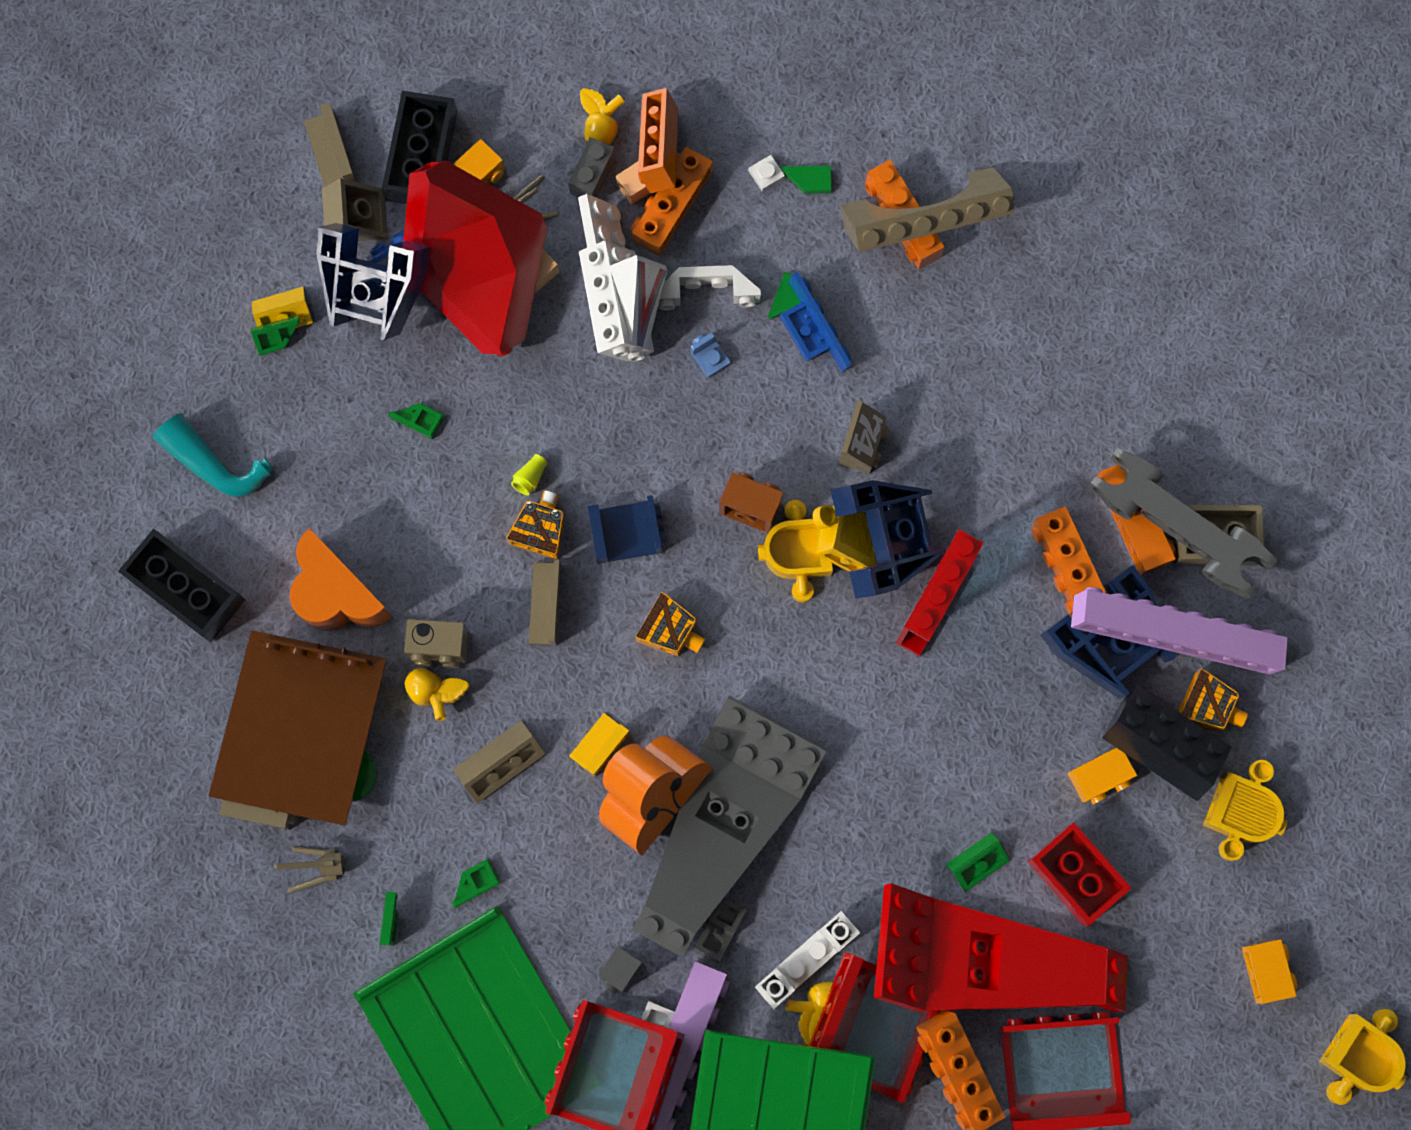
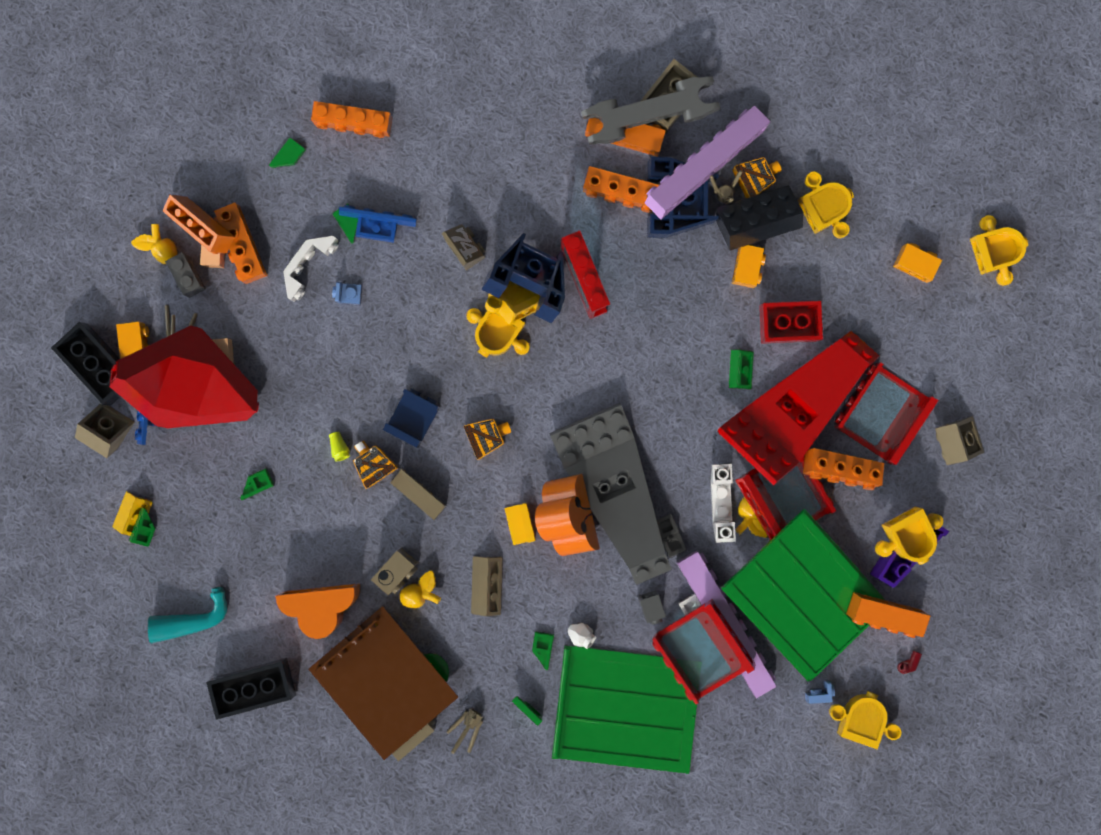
camera: 50 degrees left, 10 degrees up
(329, 146) = (52, 414): dark tan panel -> none
(368, 288) = (156, 459): dark blue wedge -> none
(524, 915) = (581, 635): none -> white rock
(618, 283) = (274, 307): white wedge -> none
(751, 501) = (451, 337): dark orange brick -> none
(766, 173) = (265, 176): white plate -> none
(875, 226) = (348, 141): dark tan arch -> none
(1163, 682) = (725, 192): none -> dark tan plant

